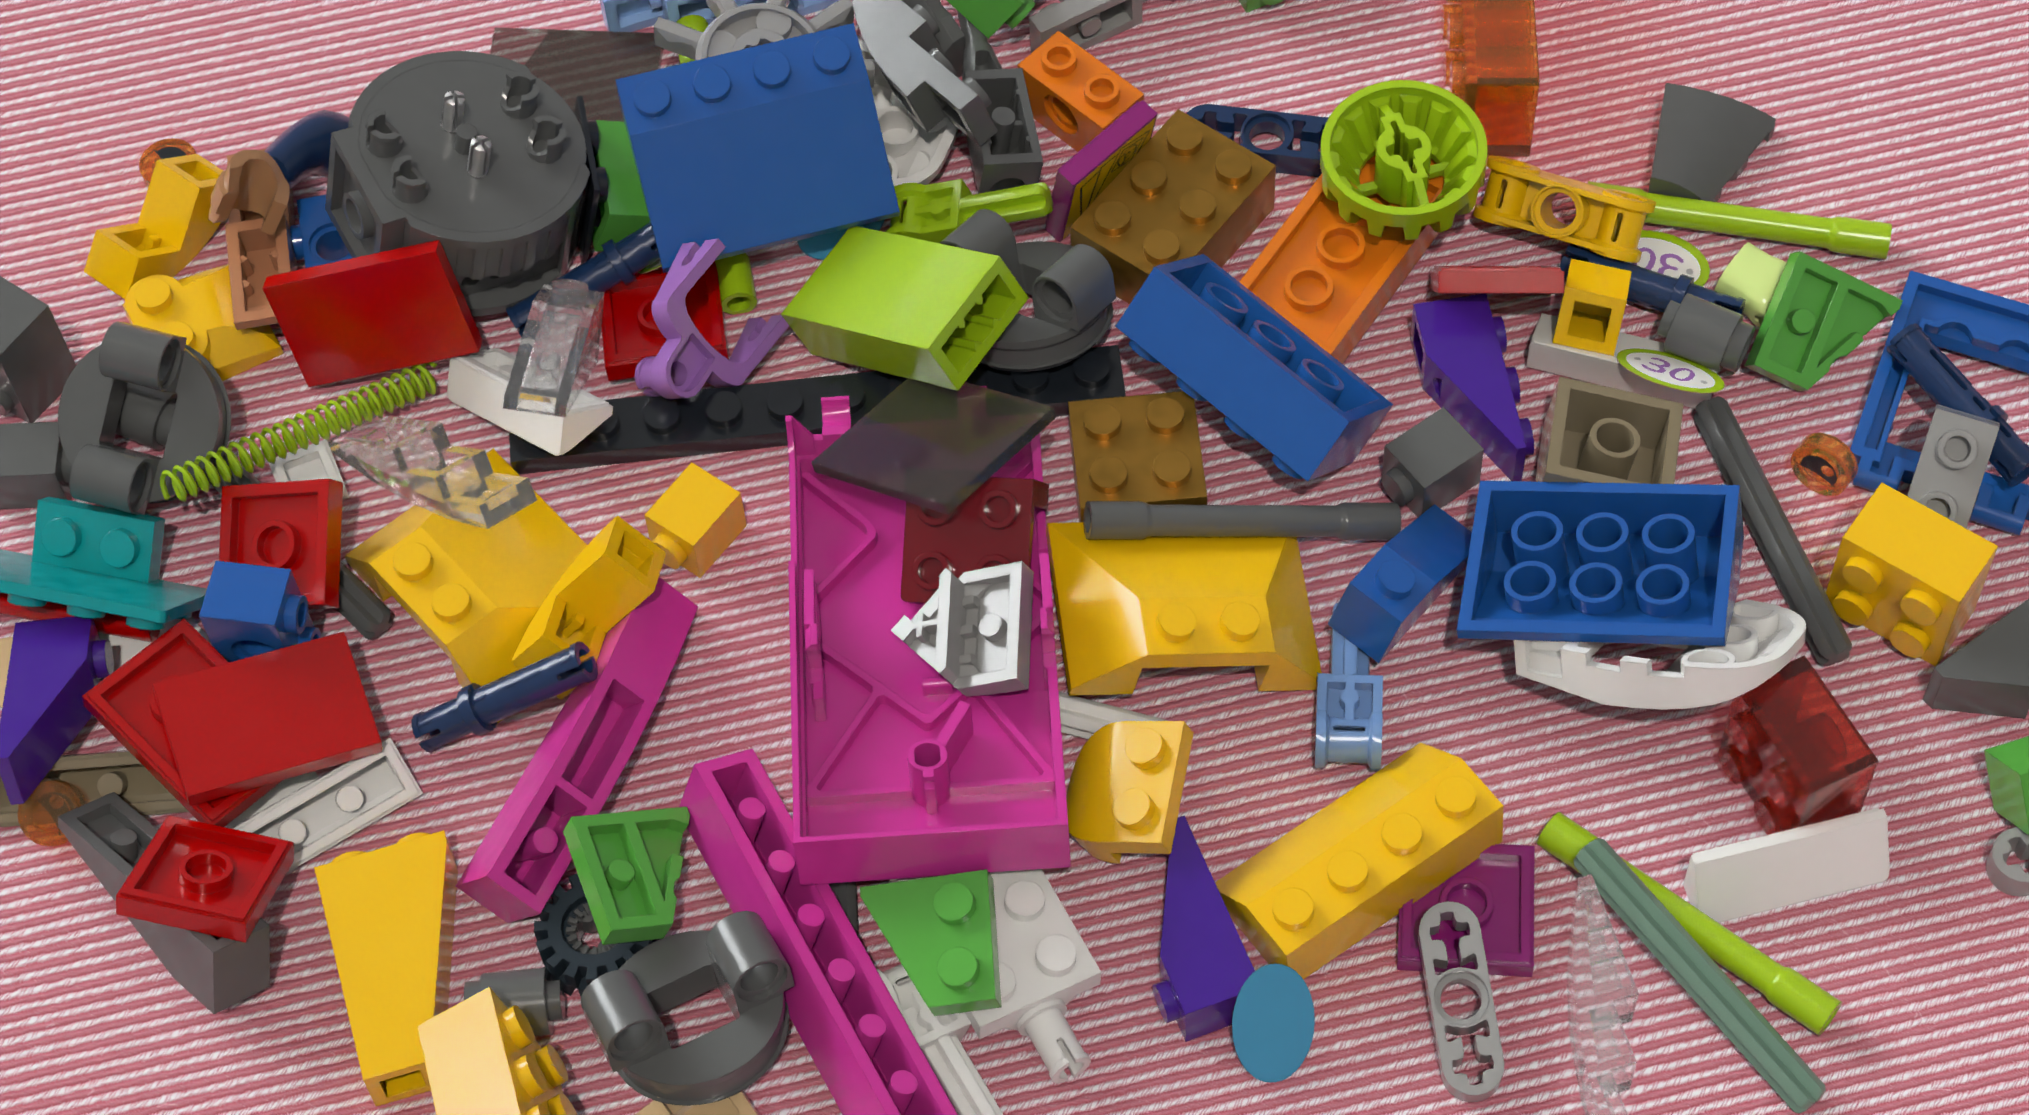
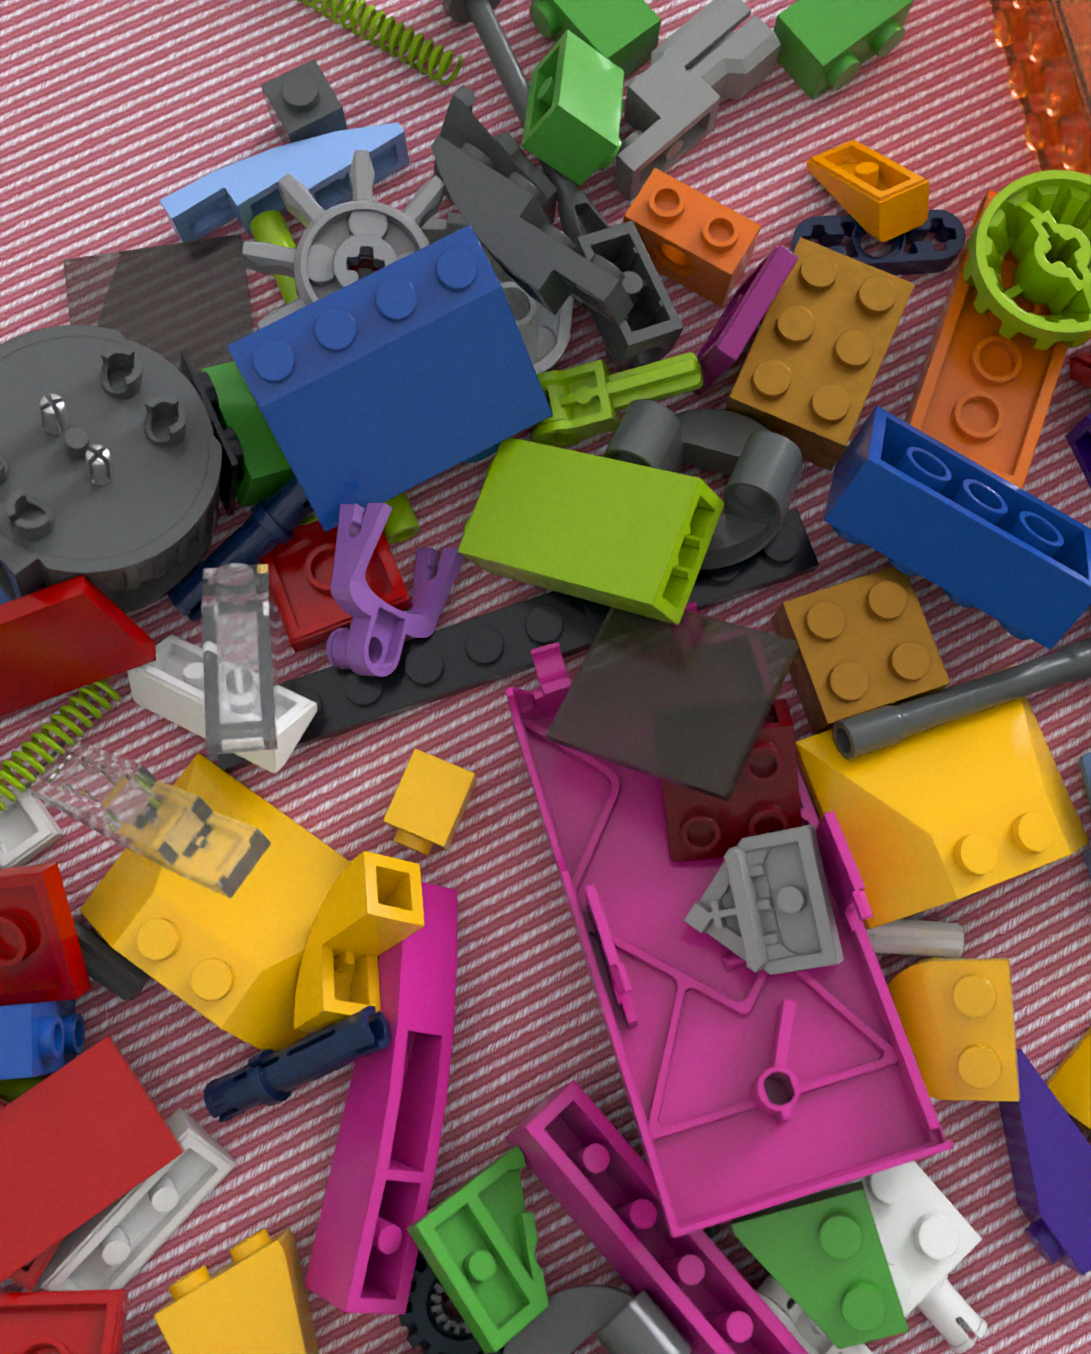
camera: 20 degrees left, 20 degrees up
(1271, 90) = (873, 189): none -> light orange slope

